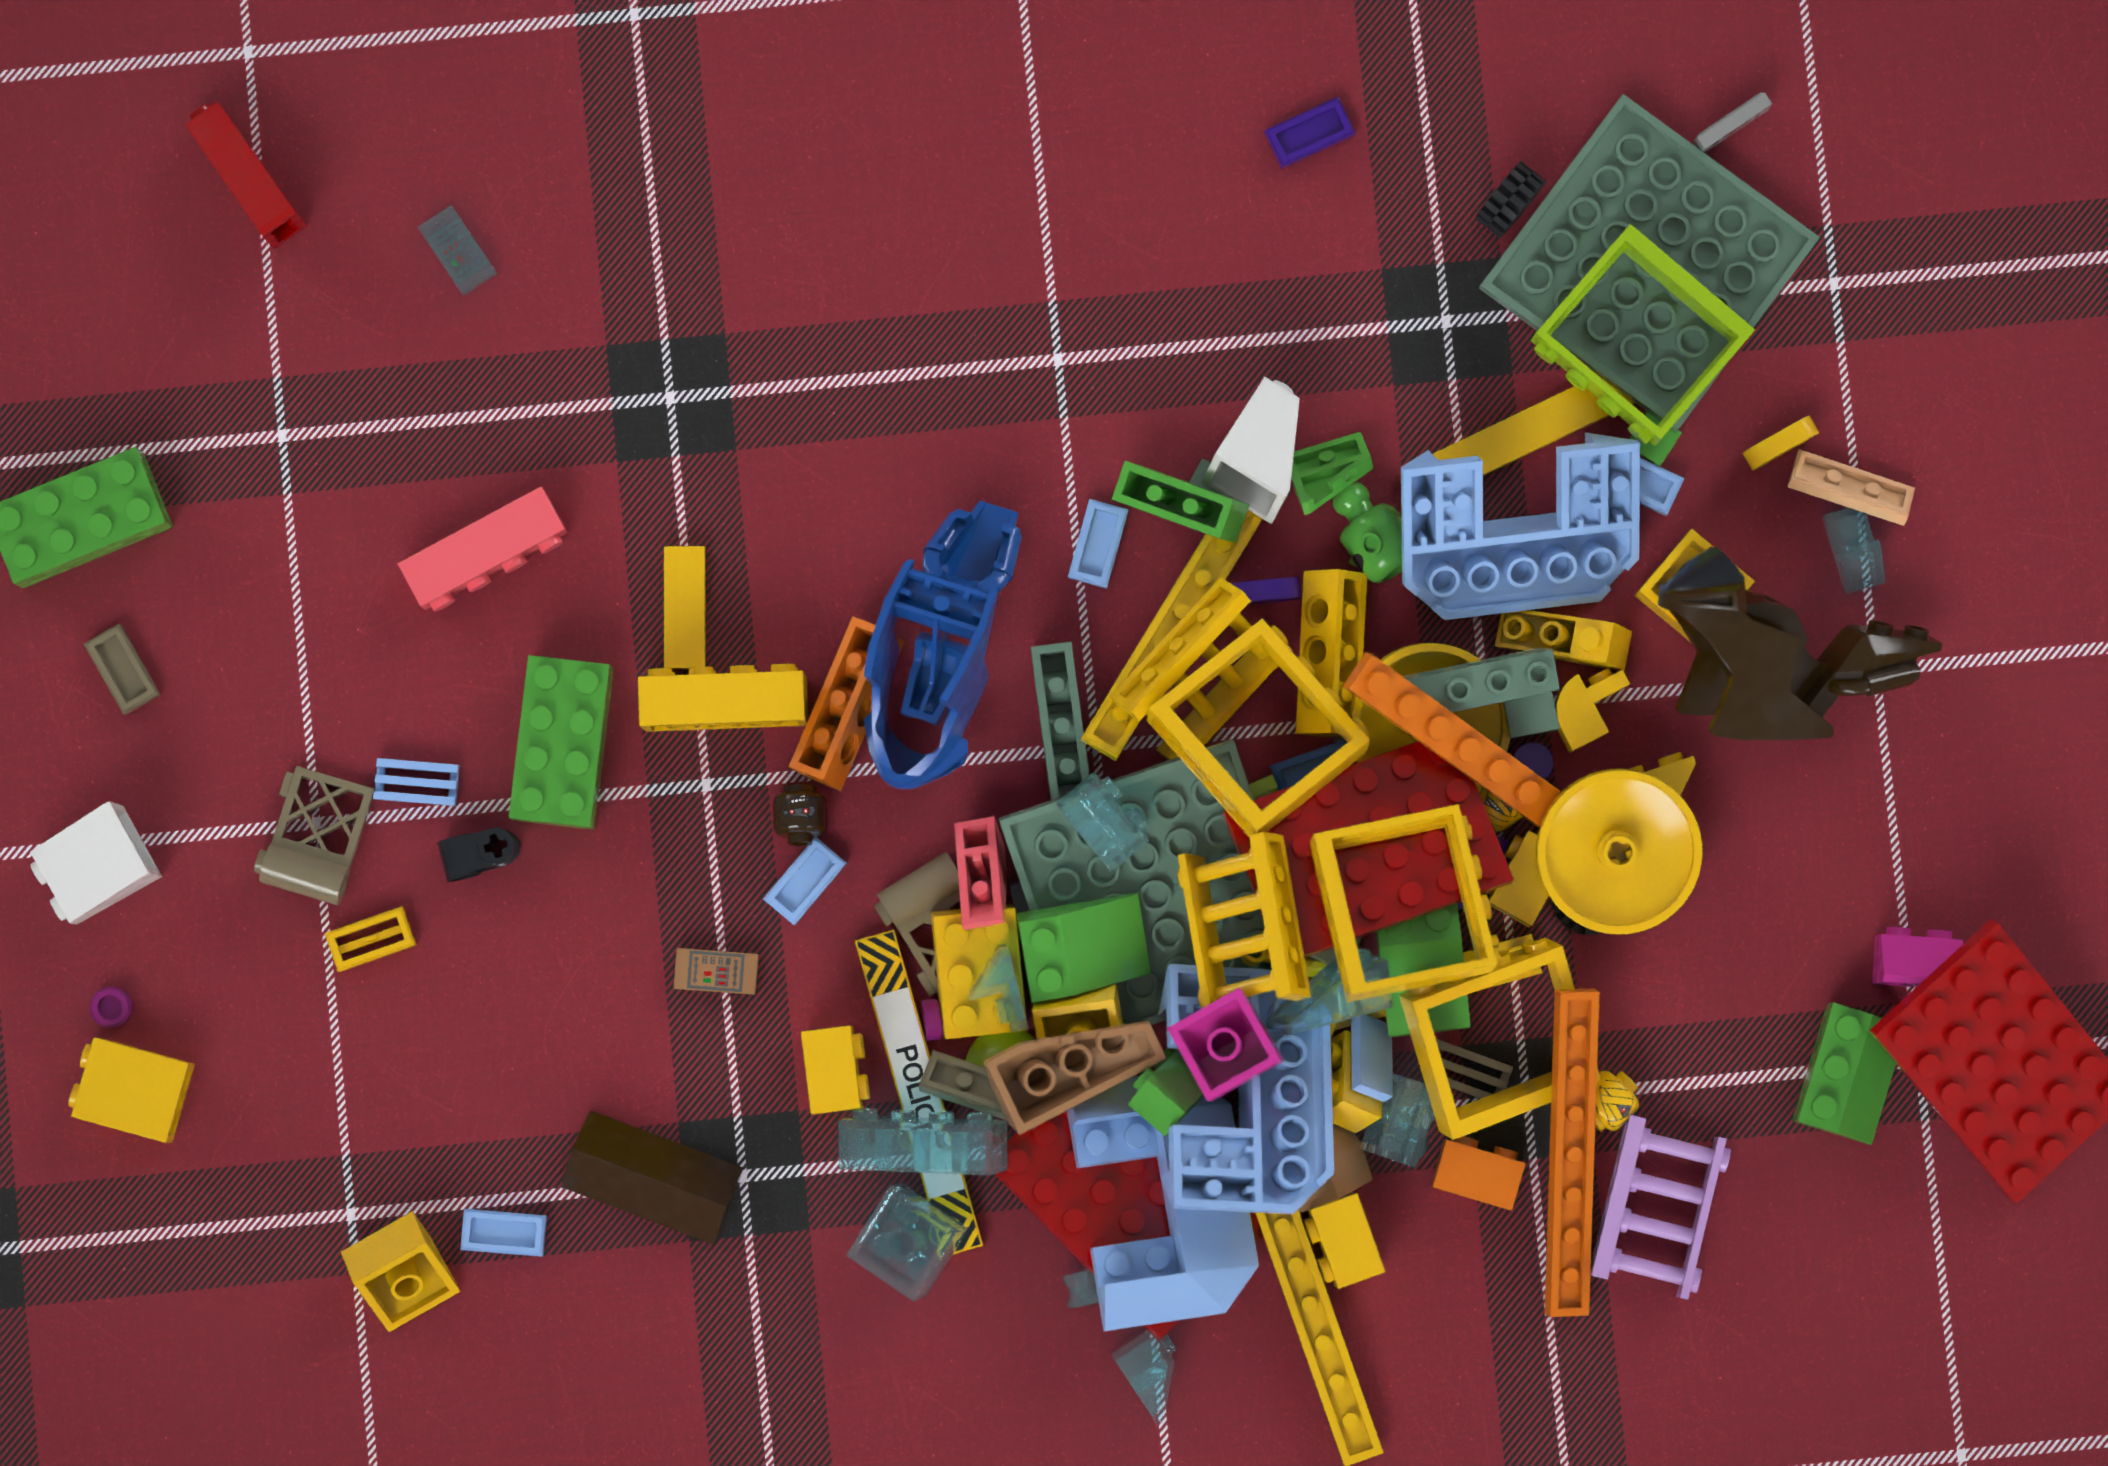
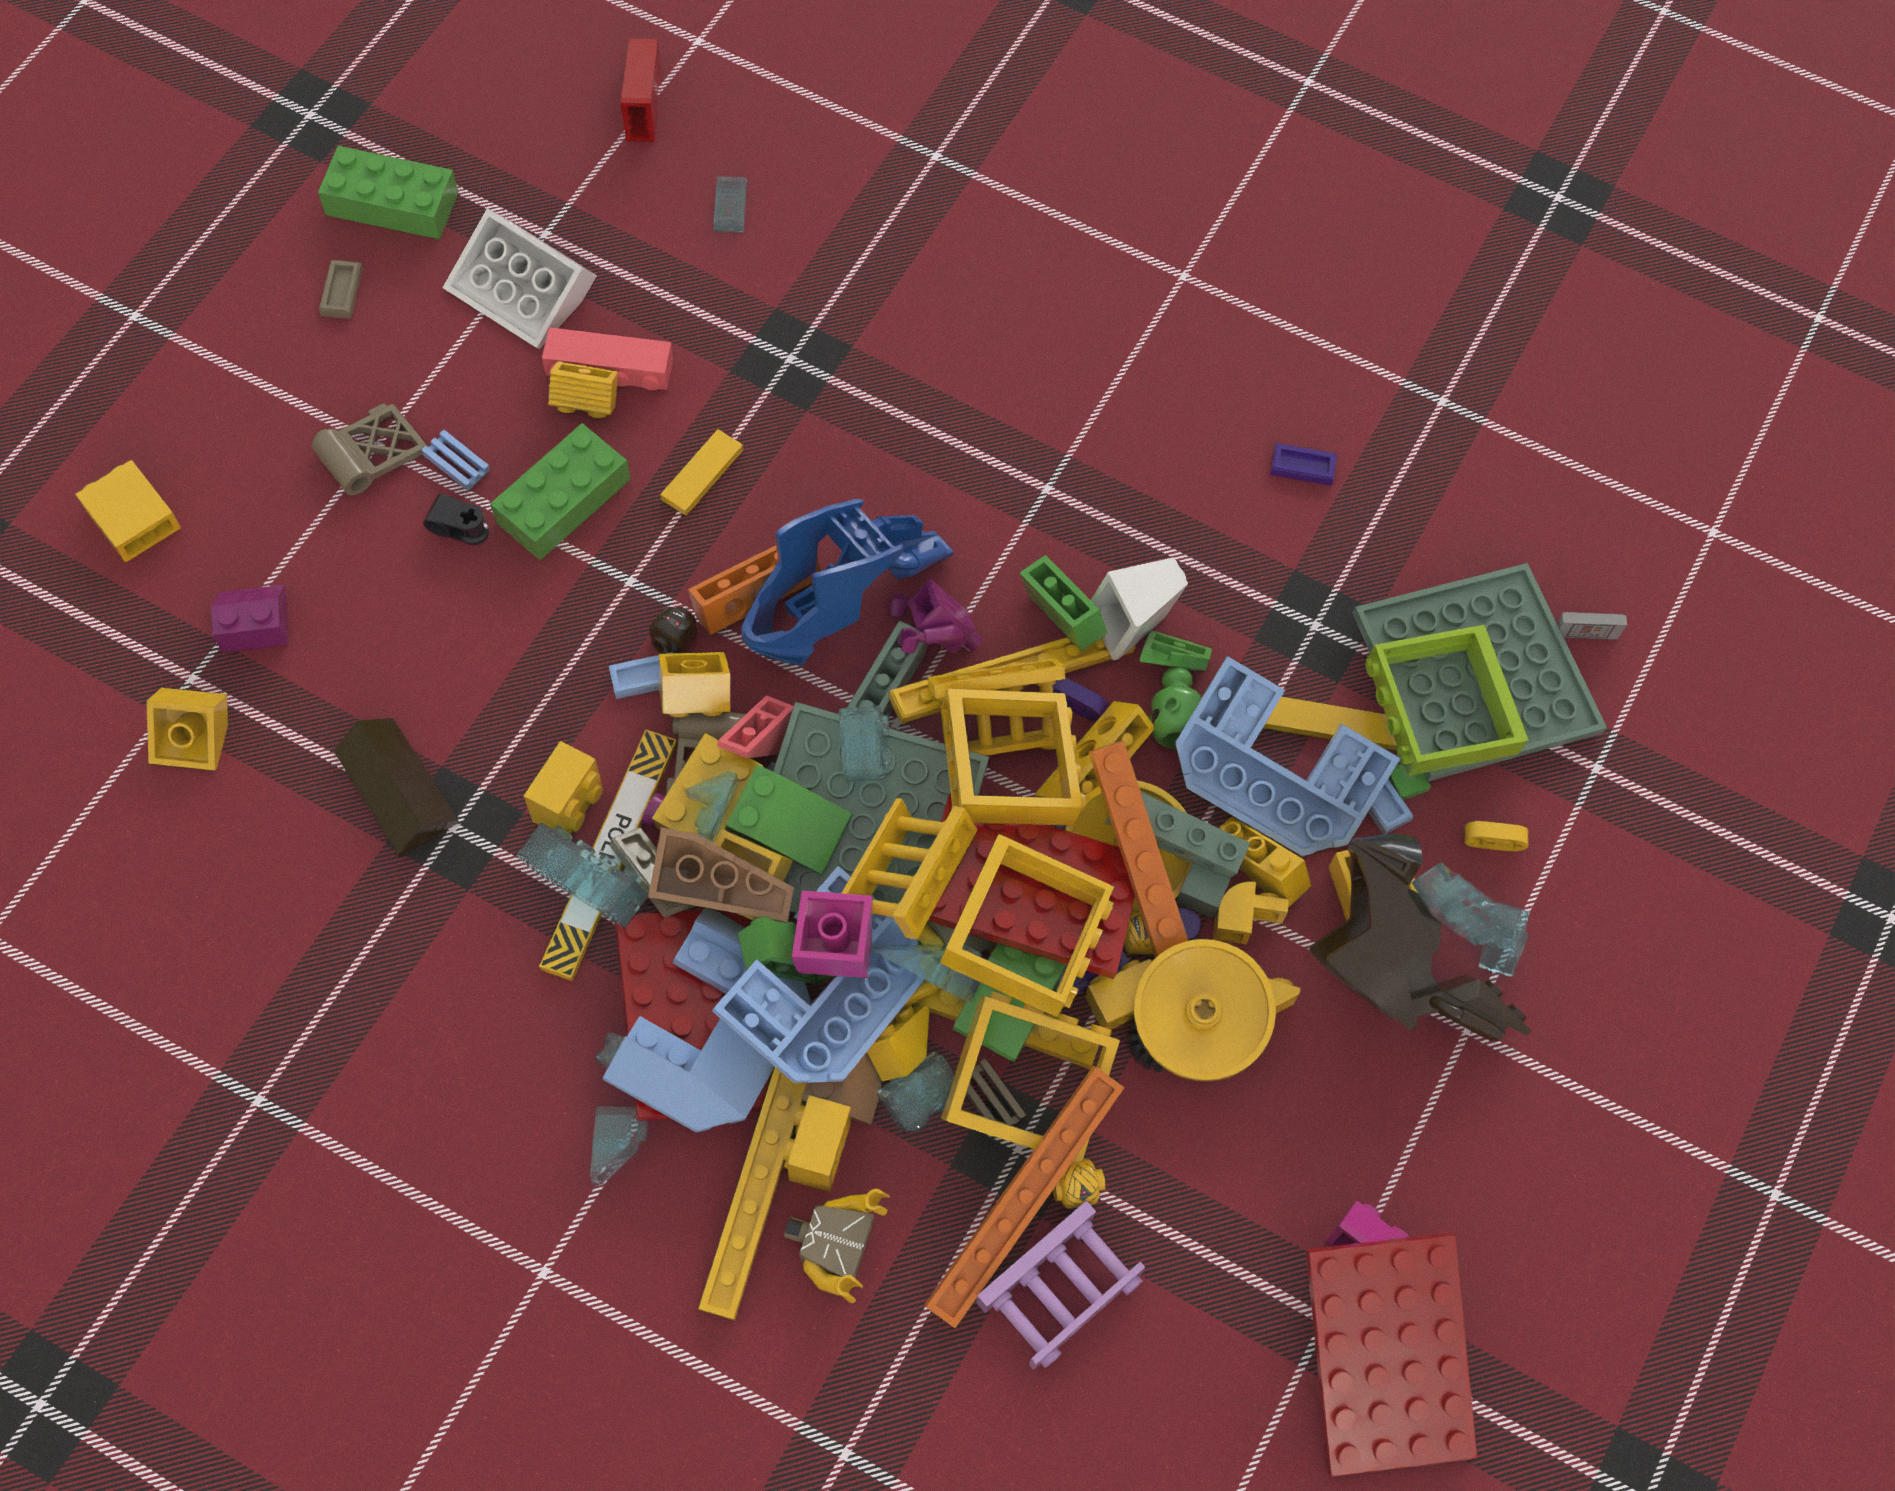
camera: 25 degrees right, 20 degrees down
(94, 863) = (227, 371): white slope -> none
(111, 1007) = (161, 461): magenta tile -> none
(308, 520) = (518, 279): none -> white slope
(356, 1108) = (250, 618): none -> magenta slope
(403, 927) = (367, 544): yellow tile -> none
(490, 607) = (583, 389): none -> yellow brick
(503, 1232) = (273, 753): light blue tile -> none
(716, 971) = (543, 689): medium nougat tile -> none
(723, 700) = (677, 525): yellow brick -> none
(874, 864) = (694, 683): none -> yellow brick
(907, 1241) = (521, 932): clear light blue brick -> none
(1066, 611) = (937, 617): none -> magenta torso
(1098, 543) = (994, 603): light blue tile -> none
(1371, 1058) = (930, 1033): light blue tile -> none
(1425, 1316) = (836, 1240): none -> torso
(1478, 1173) = (948, 1169): orange brick -> none
(1510, 199) = (1410, 571): black tyre -> none
(1801, 580) = (1459, 904): none -> clear light blue brick
(1845, 1076) = (1263, 1290): bright green slope -> none
(1851, 487) = (1528, 896): light nougat tile -> none

